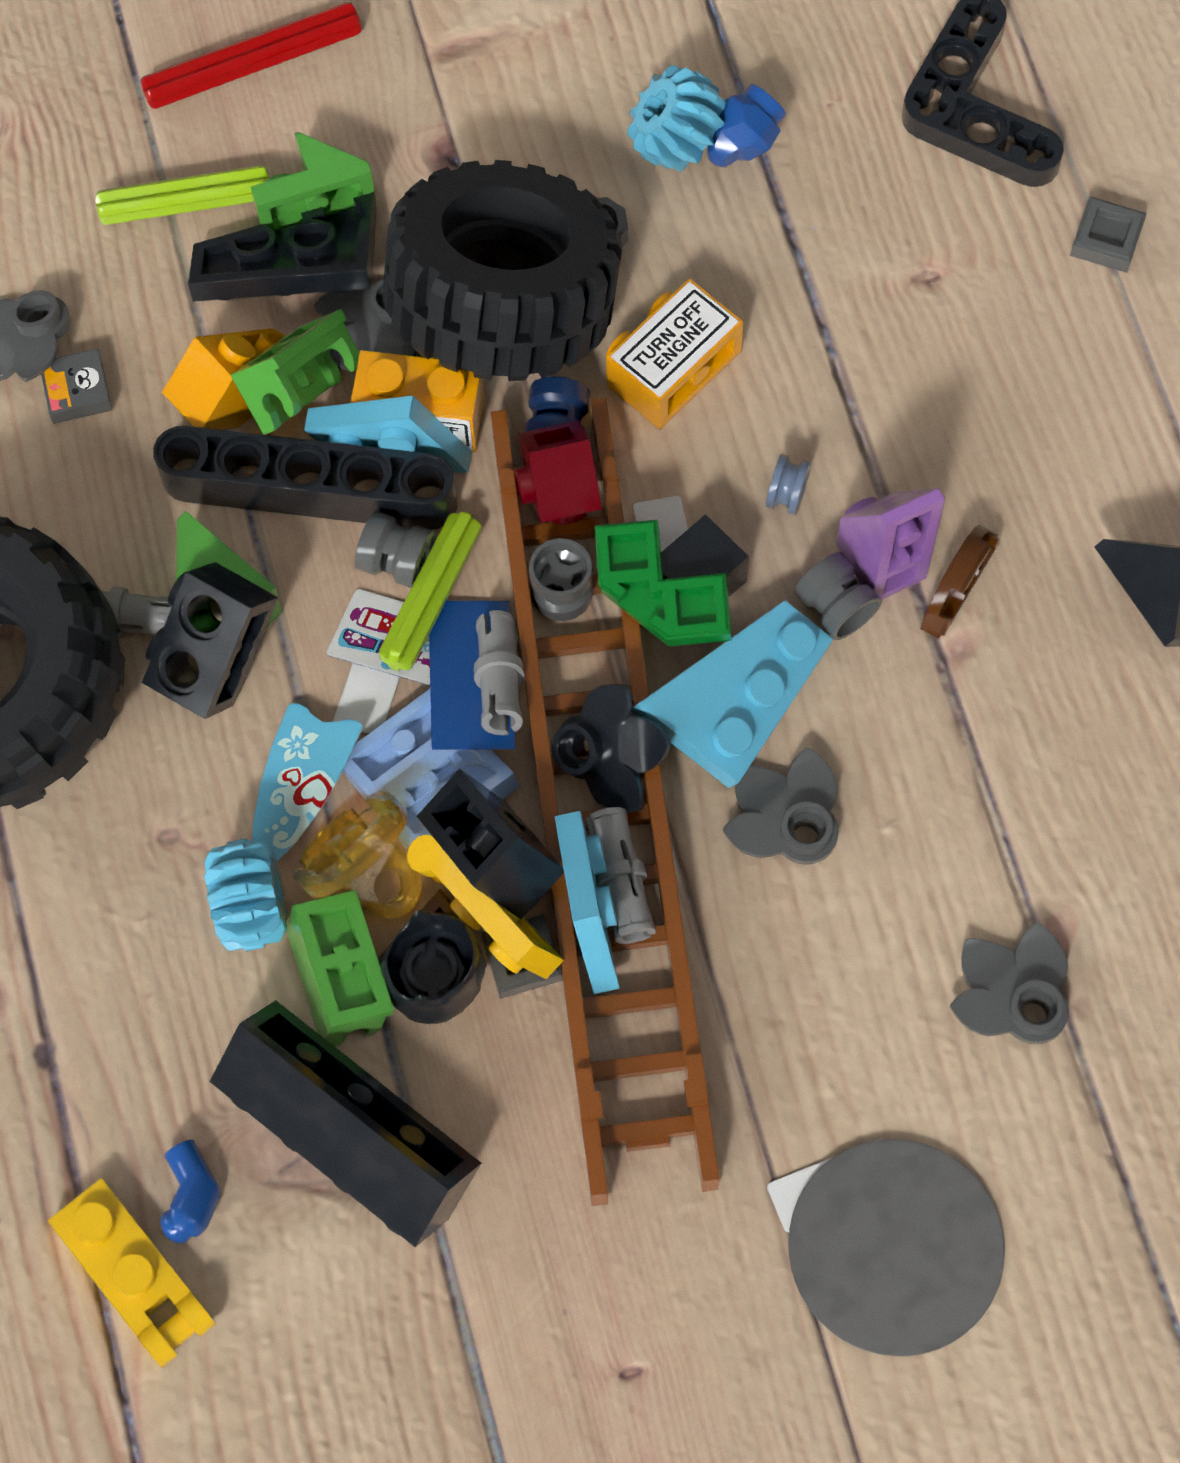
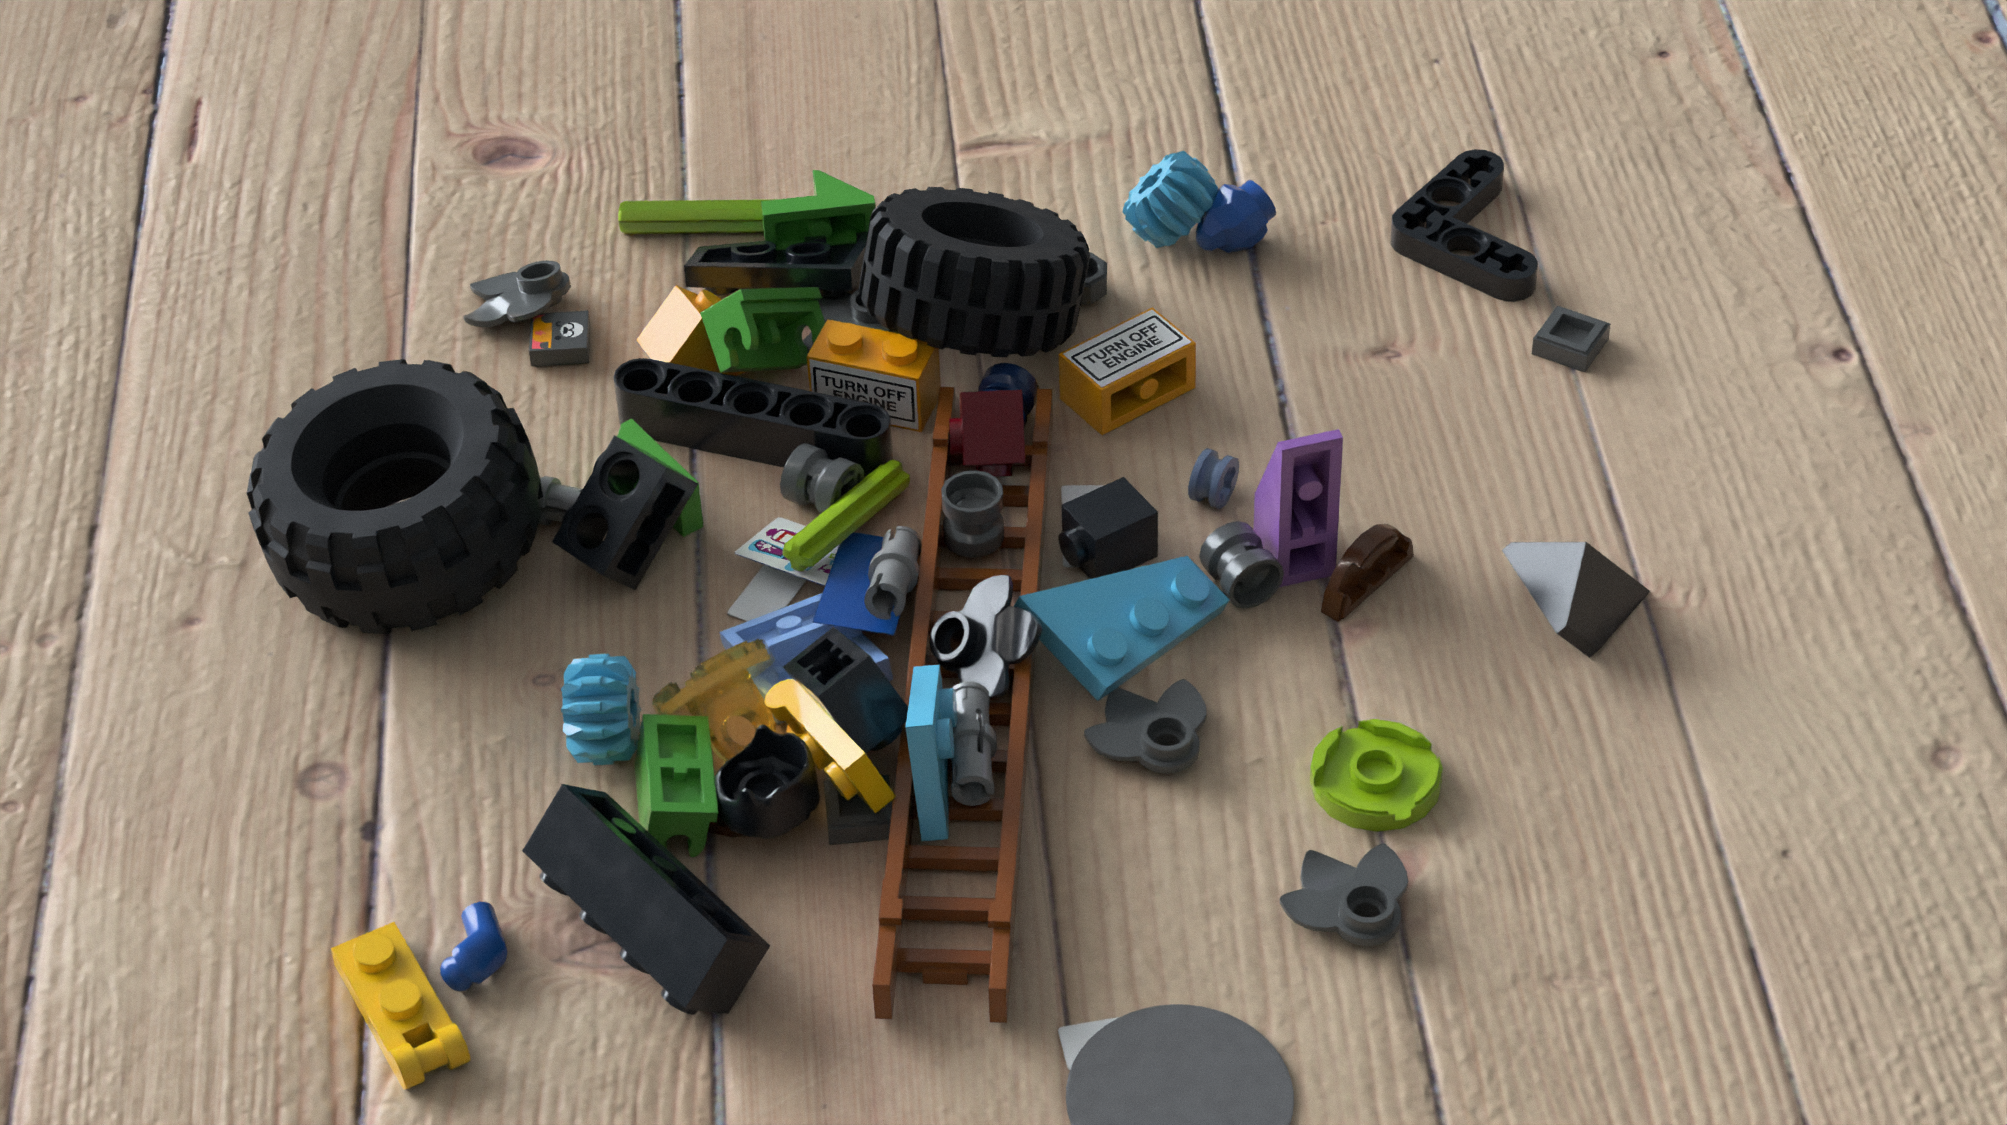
camera: 10 degrees right, 25 degrees down
(250, 55) = (791, 128): red axle -> none
(300, 775) = (684, 641): medium azure sticker -> none
(388, 424) = (848, 374): medium azure wing -> none
(671, 609) = (1071, 539): green tile -> none
(1012, 832) = (1392, 785): none -> lime tile

